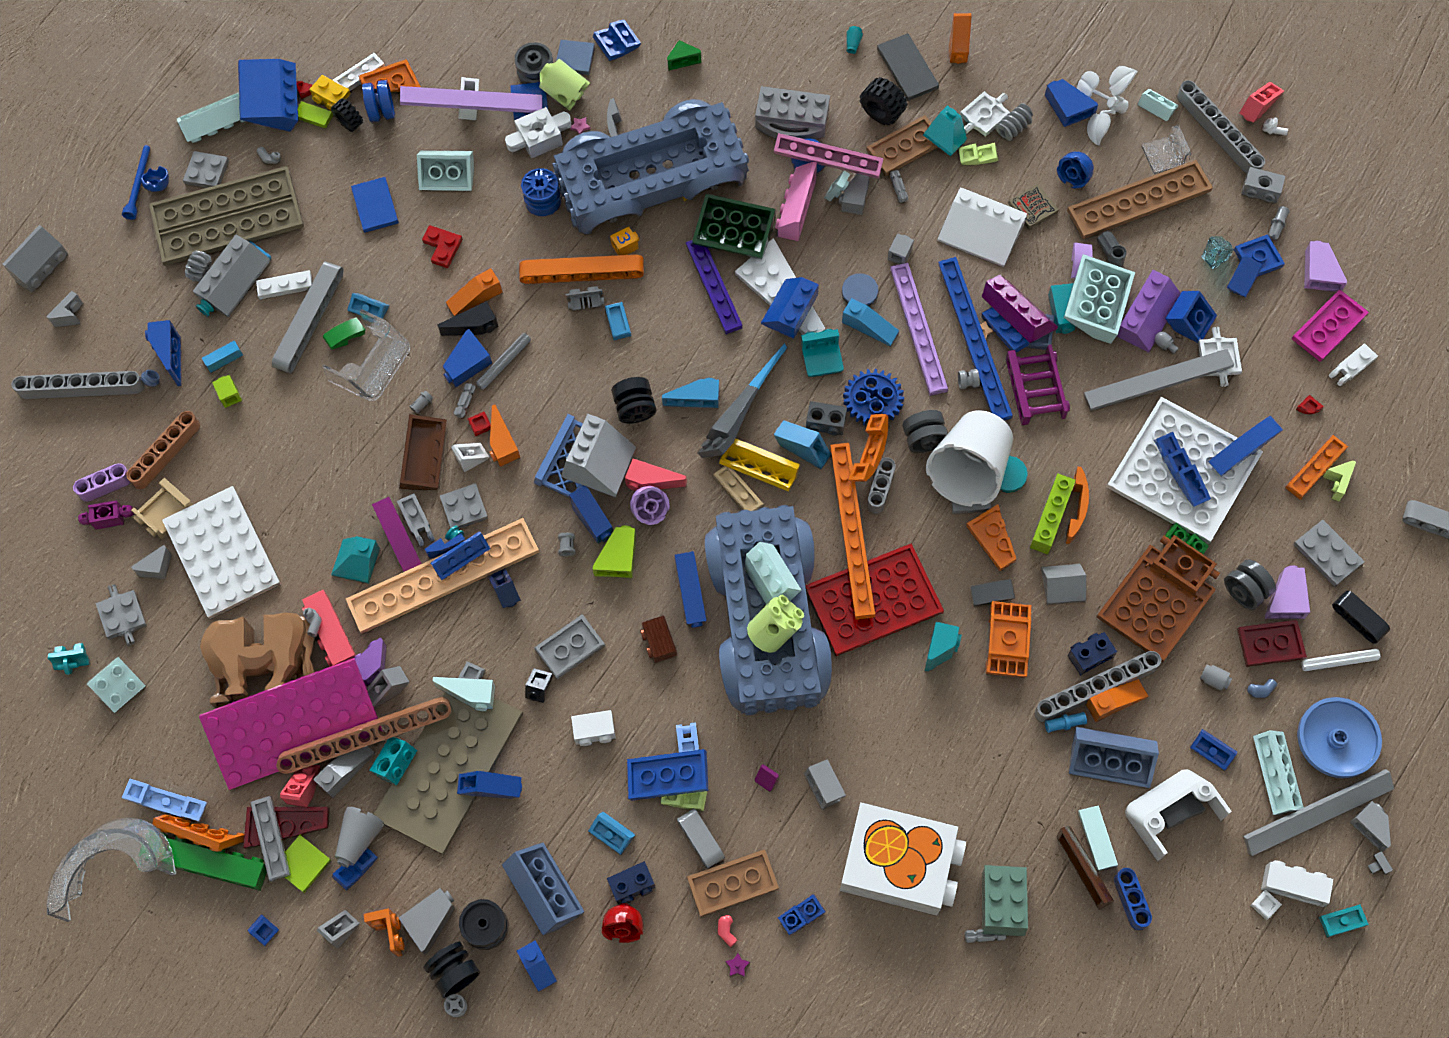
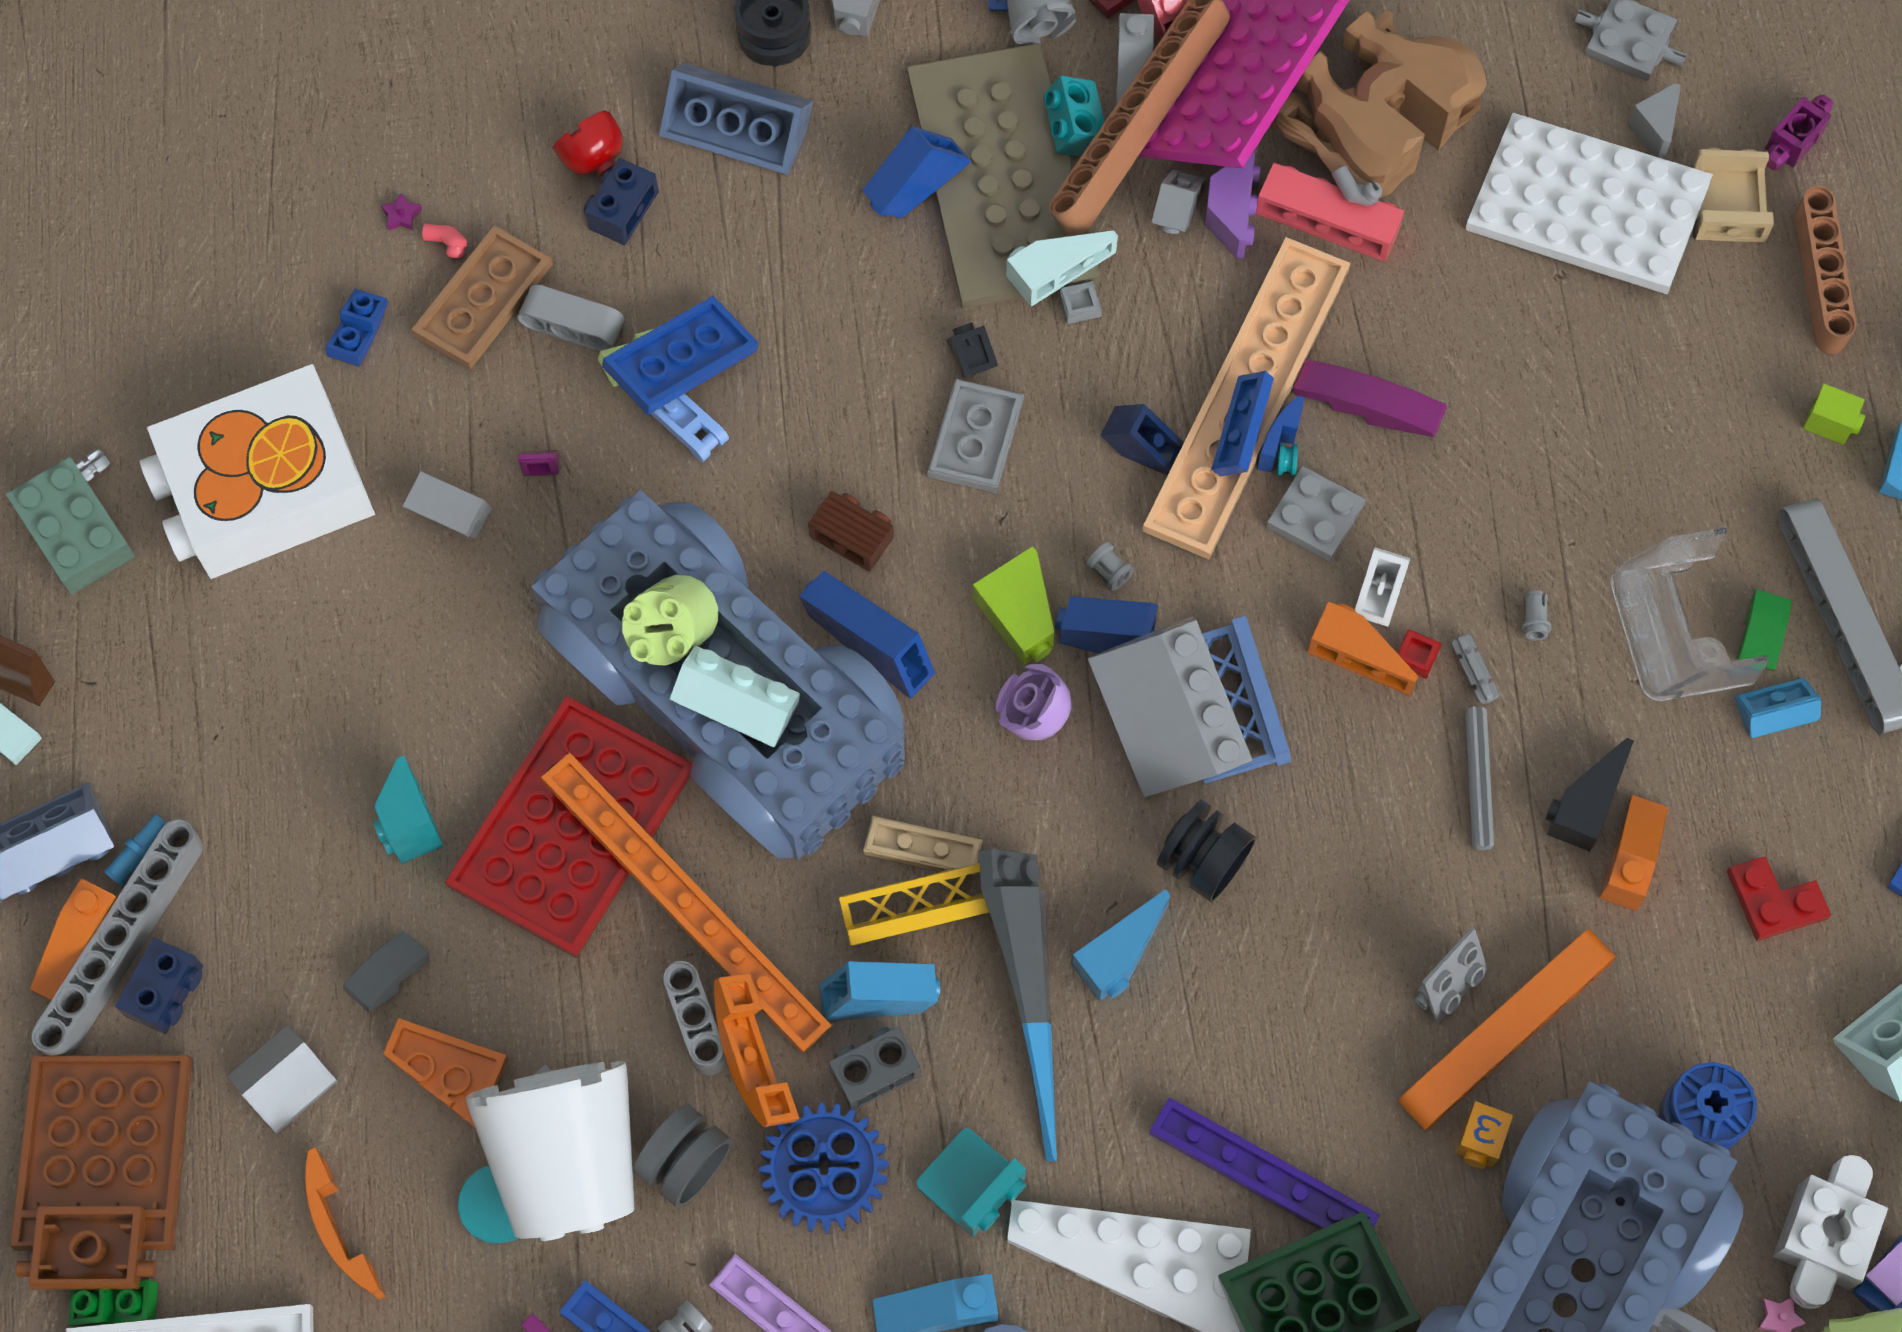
camera: 140 degrees right, 0 degrees up
(93, 481) = (1860, 155): lavender beam -> none
(356, 559) = (1393, 331): teal slope -> none
(415, 517) = (1366, 442): light grey hinge -> none
(422, 453) = (1456, 542): reddish brown slope -> none
(466, 360) = (1537, 731): blue slope -> none
(536, 965) = (668, 32): blue slope -> none
(593, 728) = (841, 348): white brick -> none
(611, 832) = (703, 249): dark azure slope -> none
(617, 321) = (1365, 988): dark azure tile -> none
(645, 474) = (1078, 756): coral slope -> none
(791, 306) = (1093, 1218): blue slope -> none
(1009, 639) = (308, 908): orange plate -> none
(1052, 514) = (371, 1178): lime brick -> none

